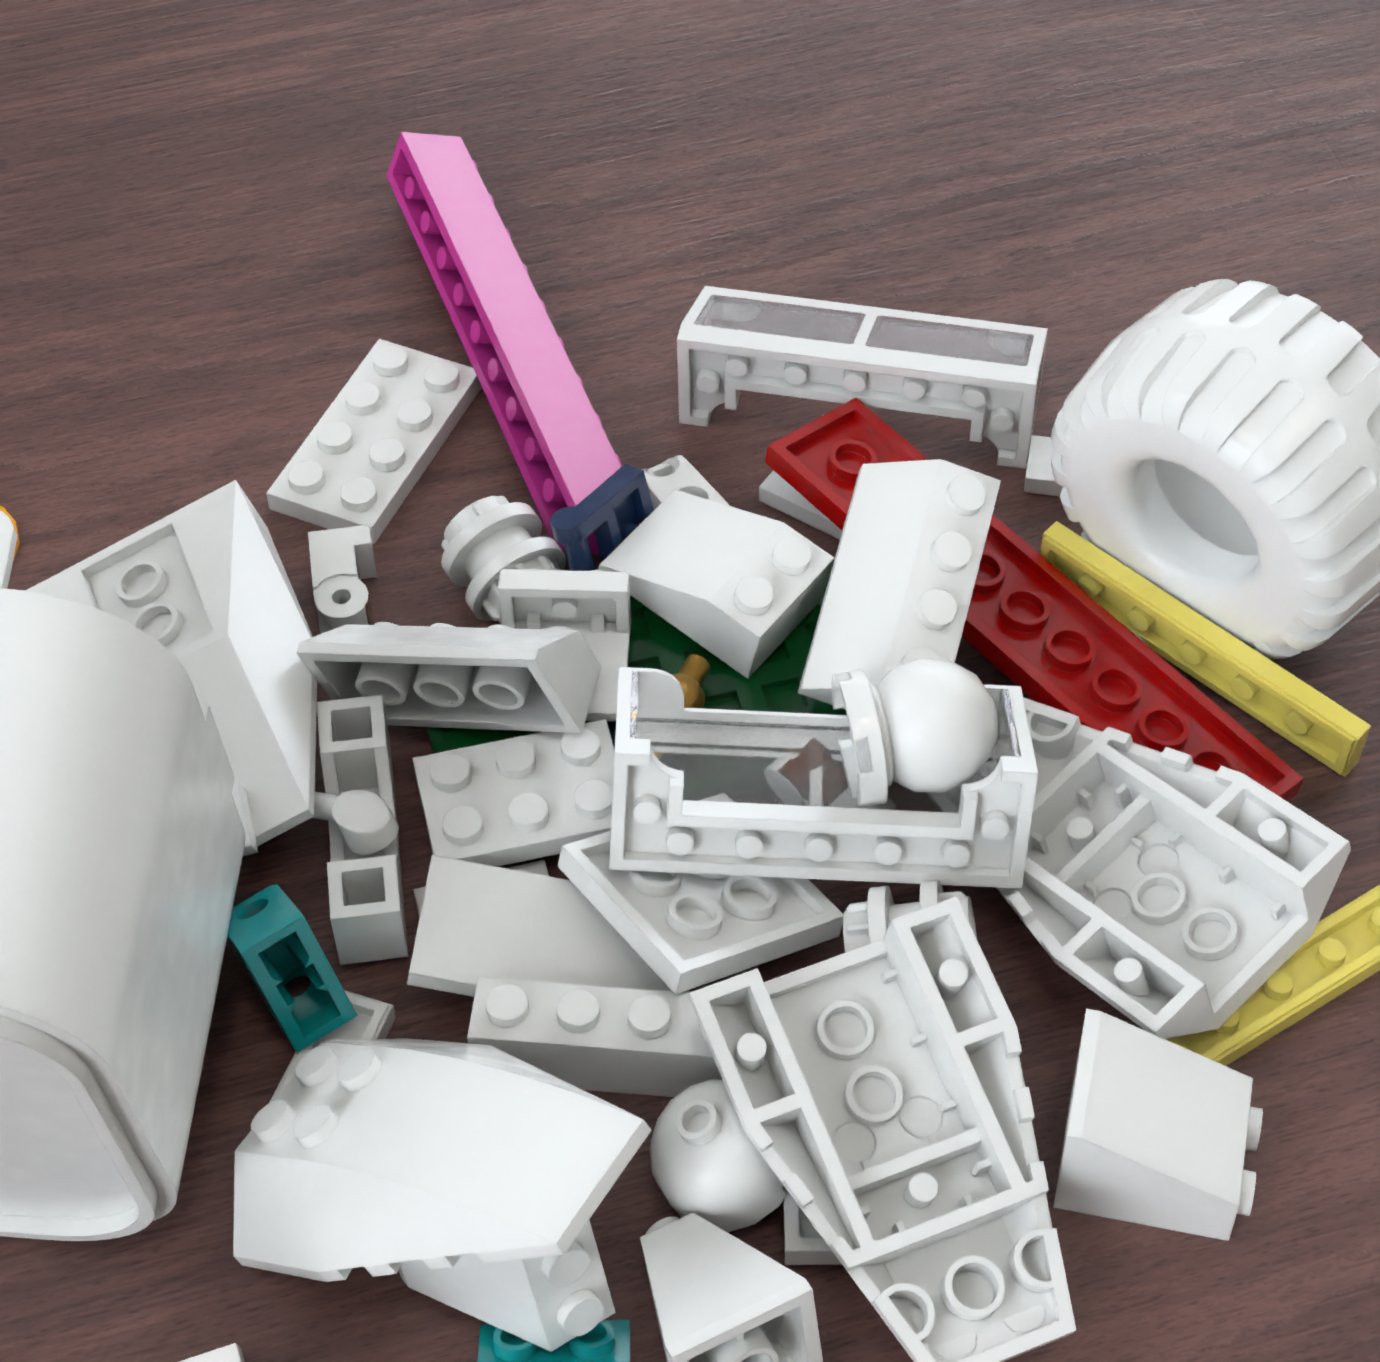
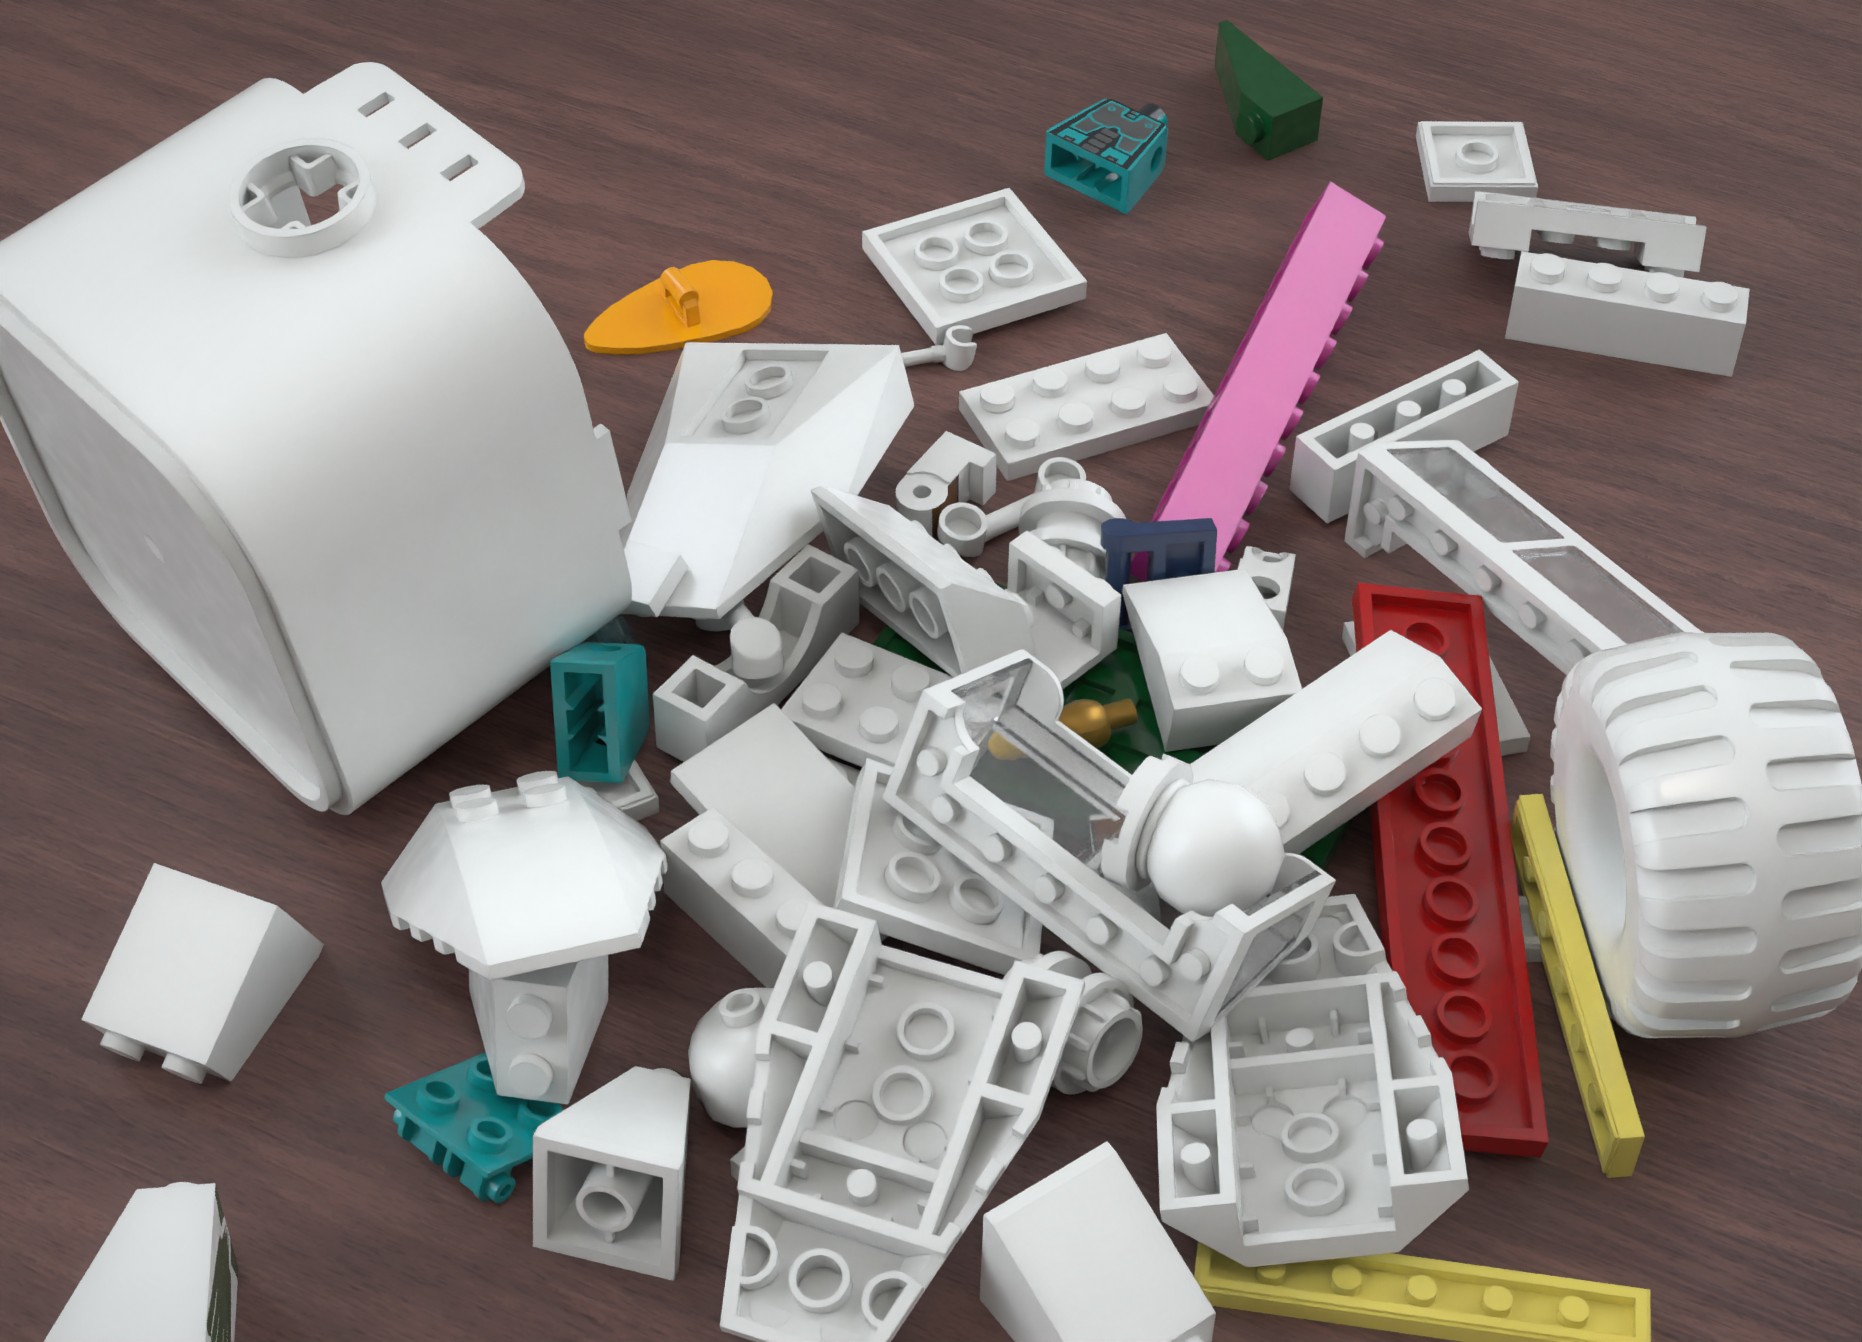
camera: 40 degrees right, 5 degrees down
(160, 379) = (974, 265): none -> white plate
(171, 213) = (1109, 152): none -> teal torso
(217, 465) = (955, 353): none -> white hand
(244, 93) = (1264, 98): none -> dark green slope
(401, 599) = (968, 527): none -> white bar
(460, 54) = (1473, 158): none -> white tile
(568, 82) = (1661, 239): none -> white piece
(655, 299) = (1460, 402): none -> white brick
(701, 112) = (1628, 313): none -> white slope

